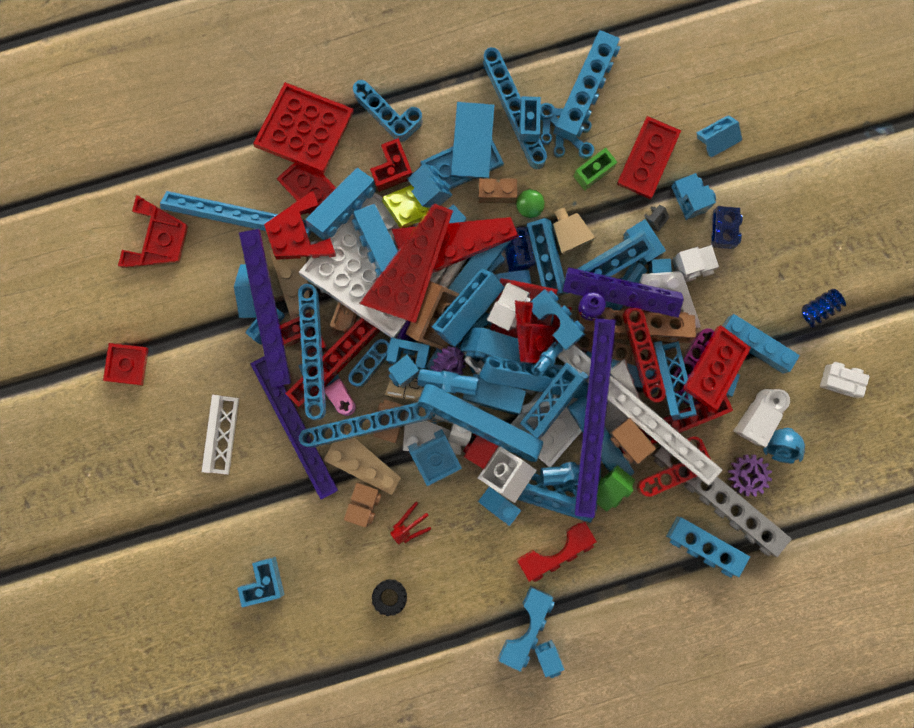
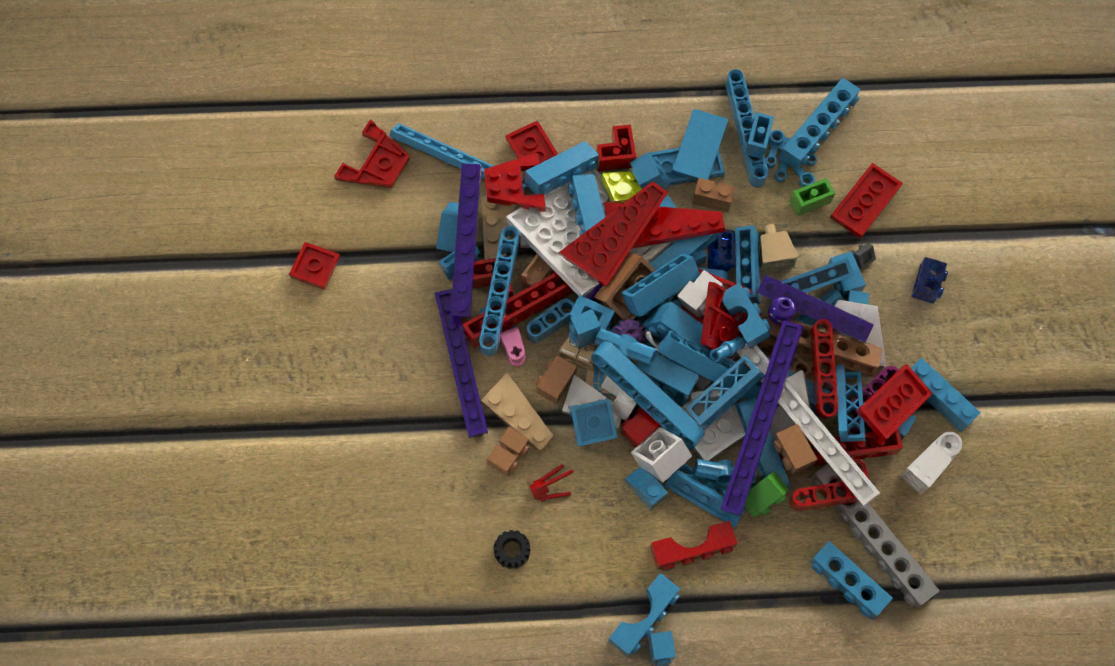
camera: 10 degrees right, 15 degrees down
(213, 438) = (379, 349): white fence -> none
(267, 584) = (391, 505): dark azure brick -> none
(303, 128) = (543, 98): red plate -> none
(356, 424) = (524, 368): dark azure beam -> none
(385, 109) = (632, 112): dark azure beam -> none
(530, 203) = (742, 214): bright green hair -> none
(693, 196) = (902, 244): dark azure brick -> none
(695, 262) = (893, 303): white brick -> none
(720, 135) = (940, 197): dark azure panel -> none
(752, 468) = (899, 517): medium lavender gear -> none
(786, 446) = (949, 499): dark azure cylinder -> none
(823, 306) = (1013, 375): clear blue piece -> none
(844, 380) = (1022, 451): white brick -> none

